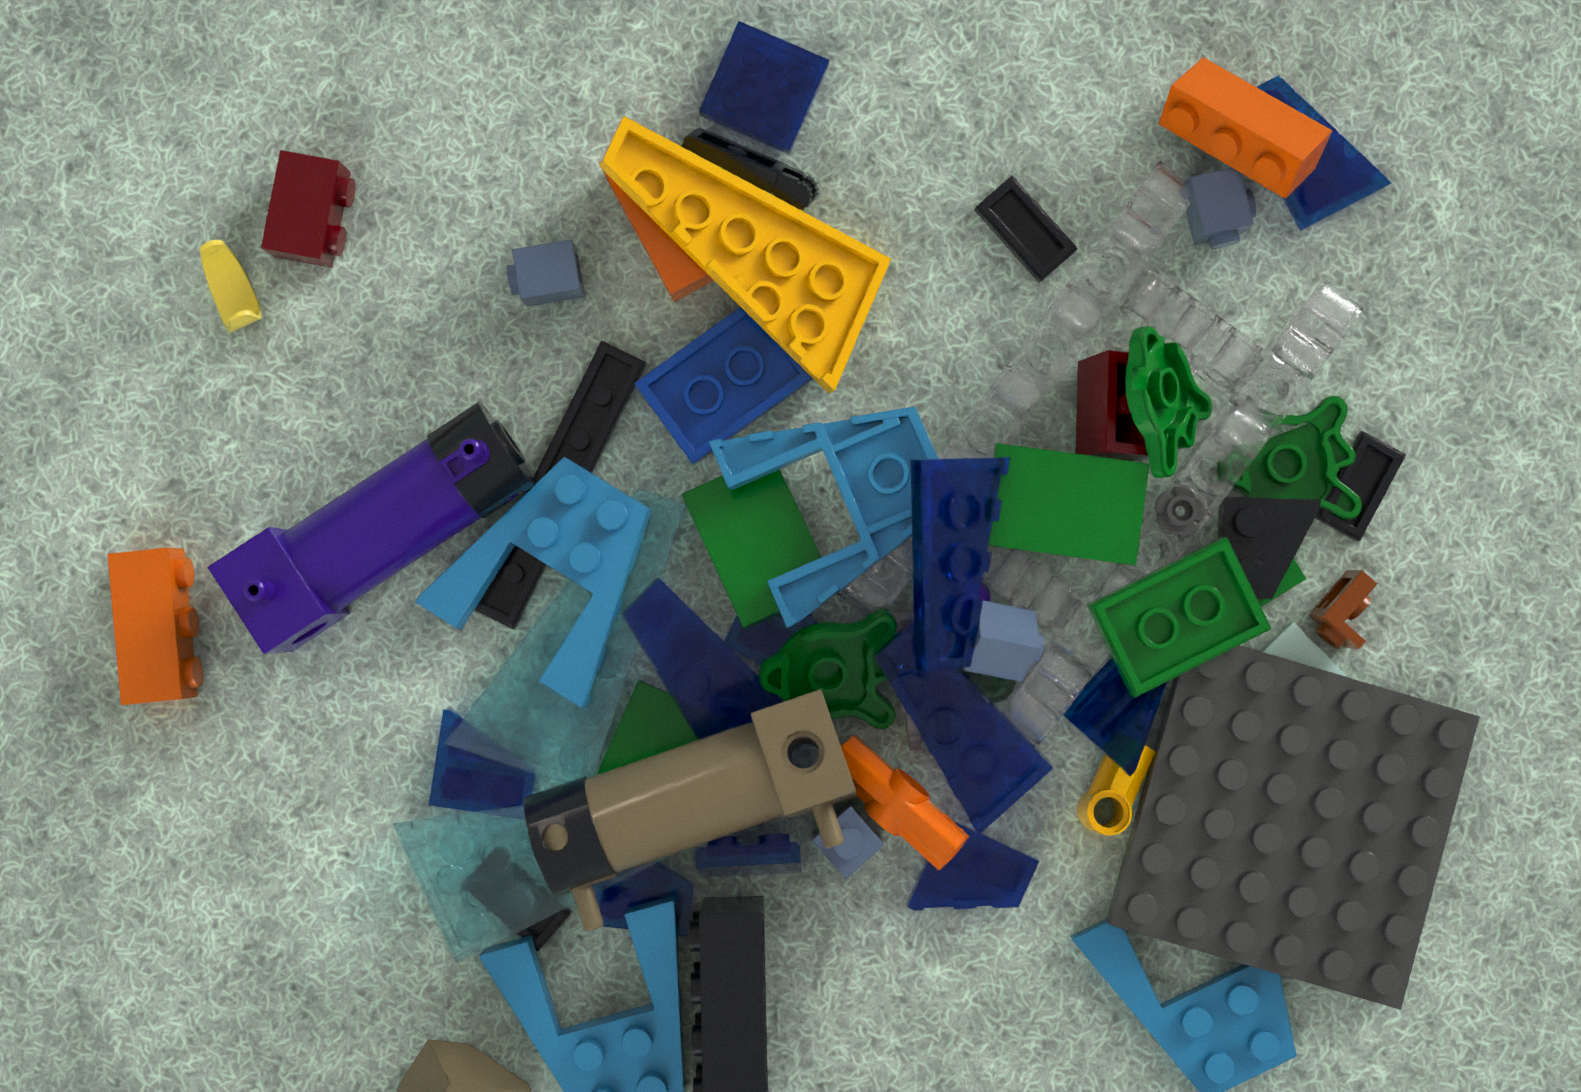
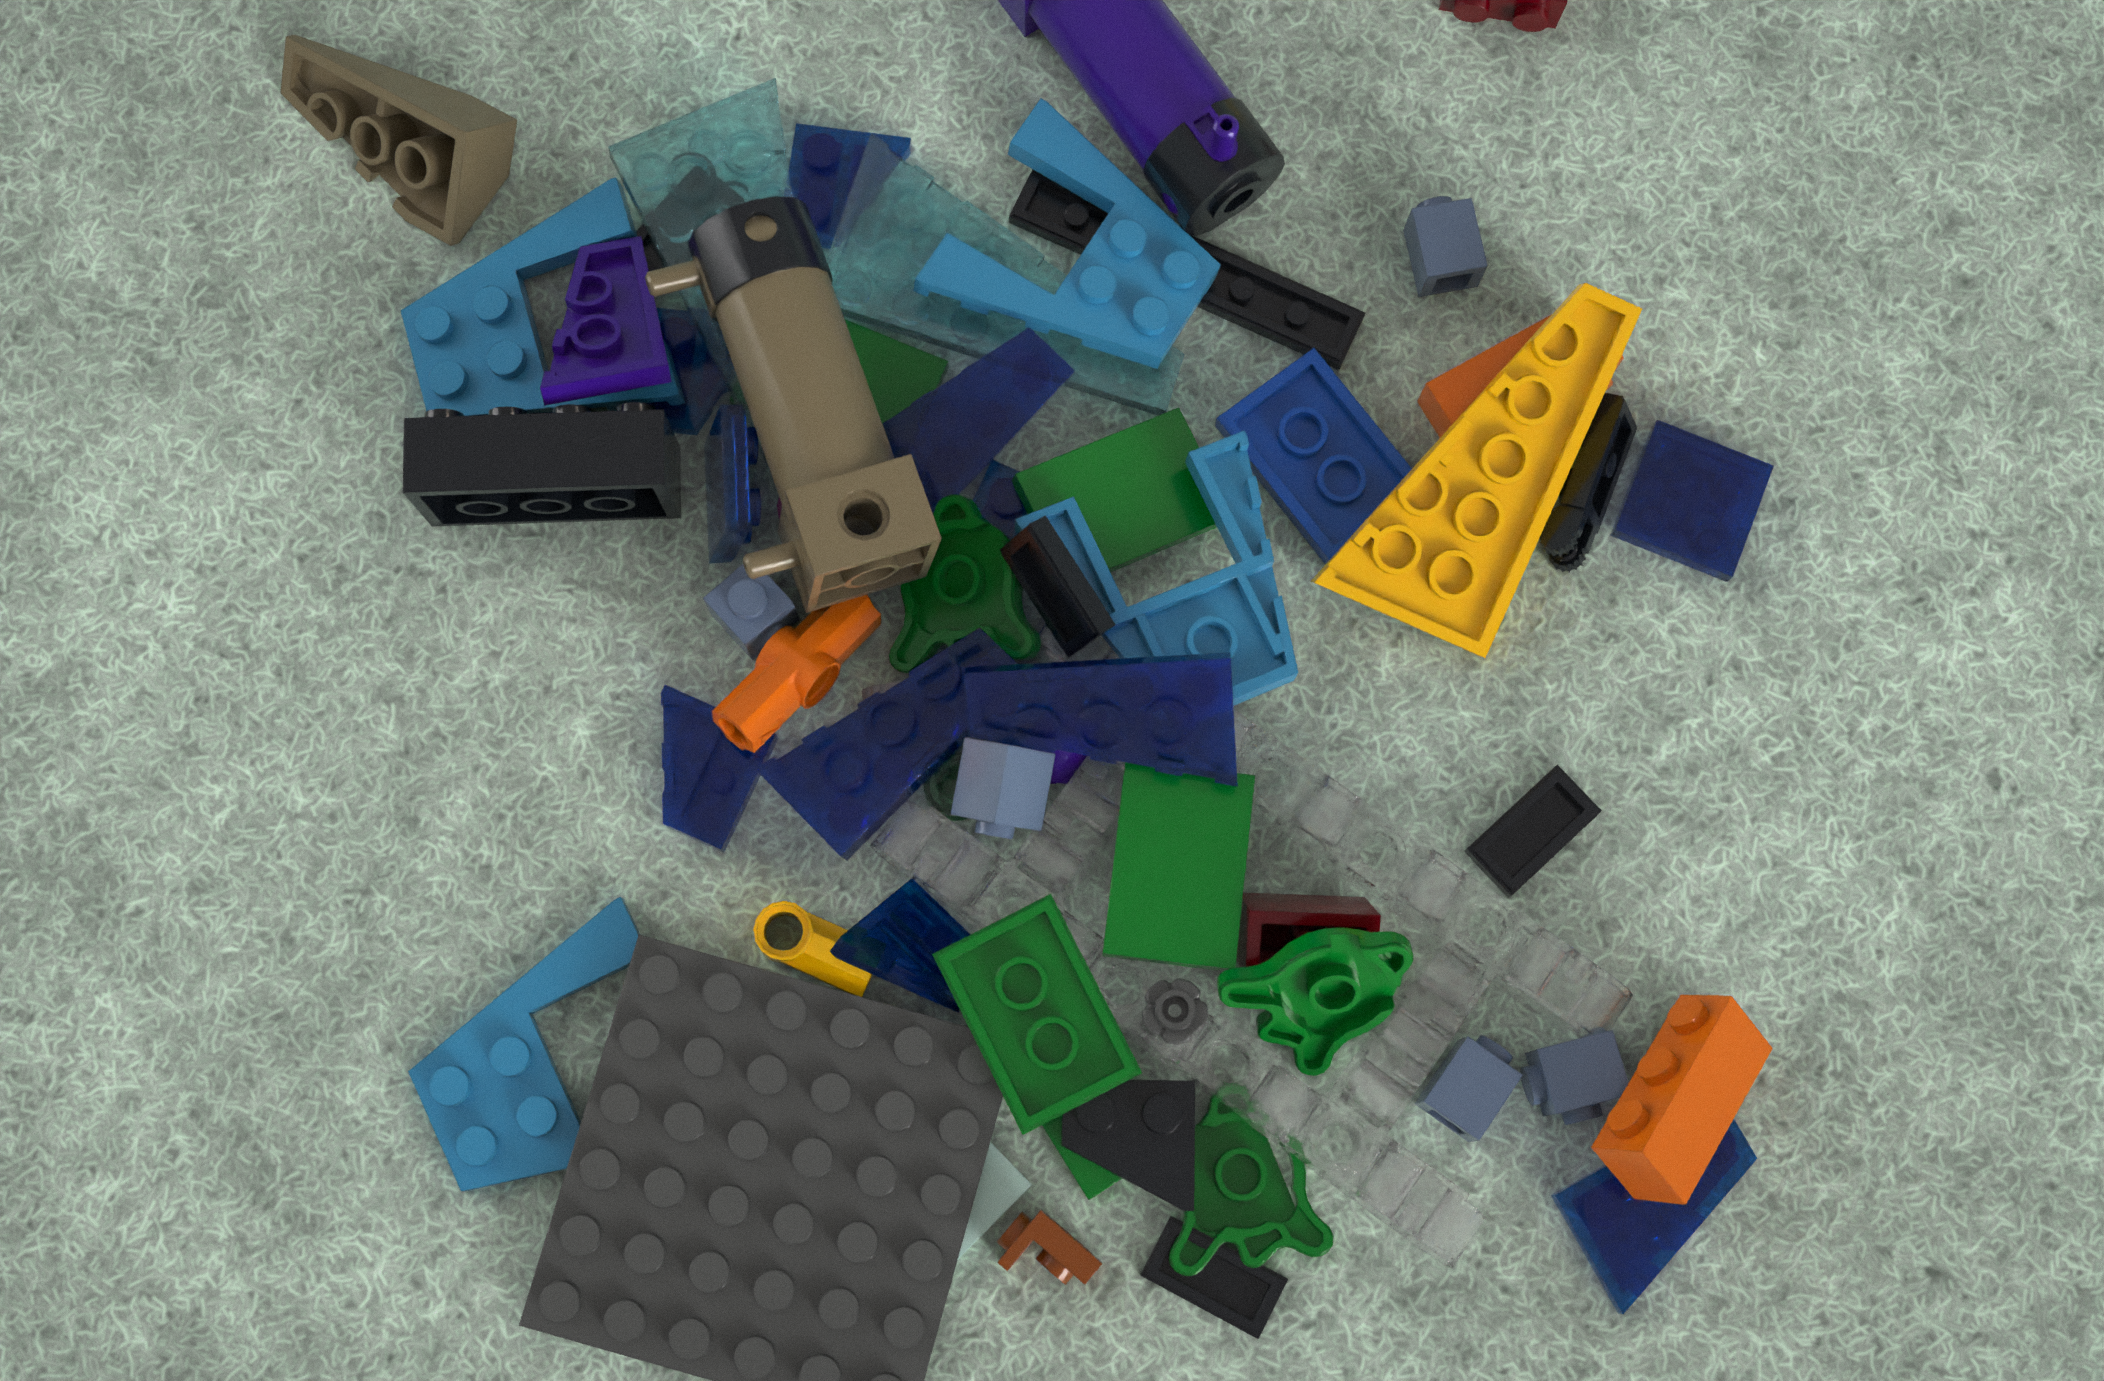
camera: 85 degrees right, 10 degrees down
(624, 959) = (609, 328): none -> dark purple wing
(845, 596) = (1056, 586): none -> black tile
(1227, 286) = (1470, 1087): none -> sand blue brick

